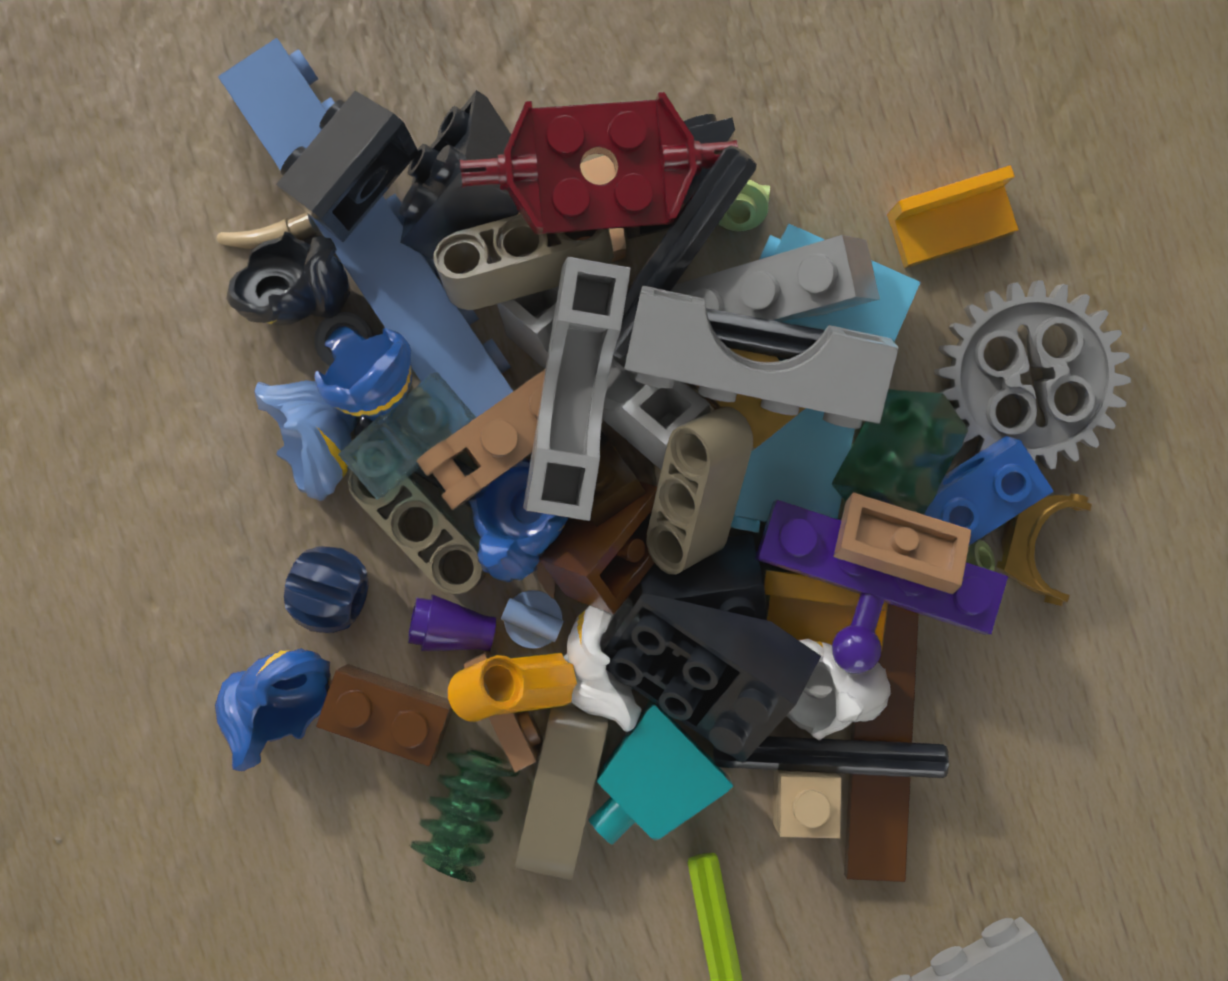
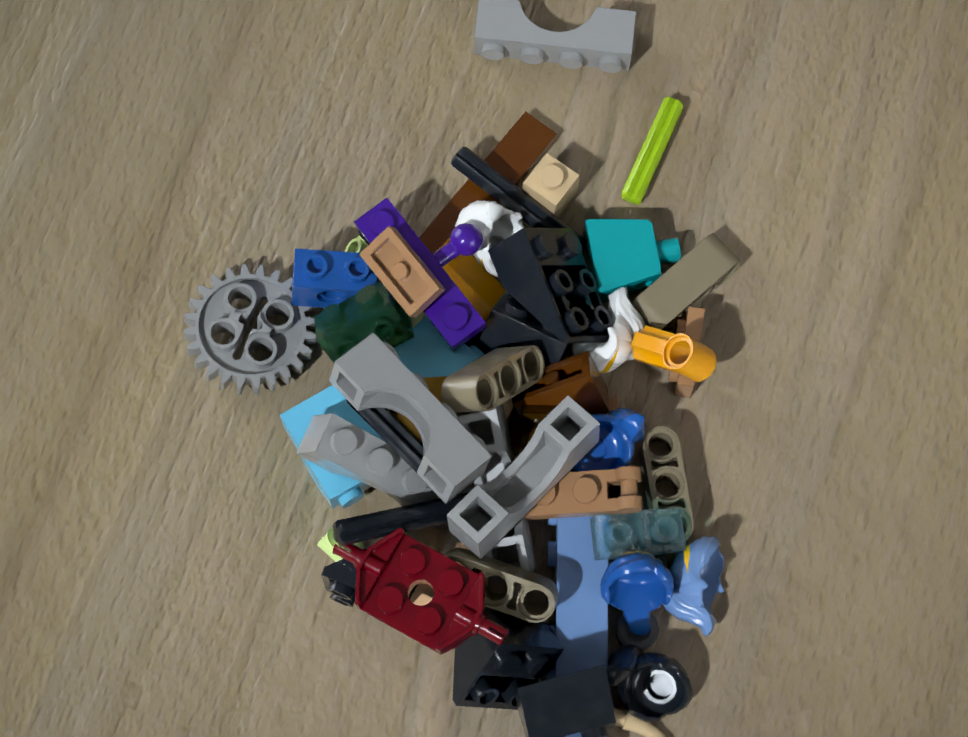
camera: 145 degrees left, 15 degrees down
(270, 702) = (822, 446): blue hair -> none
(326, 589) = (746, 487): dark blue piece -> none
(385, 714) = (757, 393): reddish brown brick -> none
(449, 626) = (689, 421): dark purple cone -> none
(464, 813) = (748, 309): clear green piece -> none
(532, 619) = (635, 390): light blue plate -> none
(953, 217) = (225, 449): light orange panel -> none
(1020, 541) = (328, 240): pearl gold helmet -> none

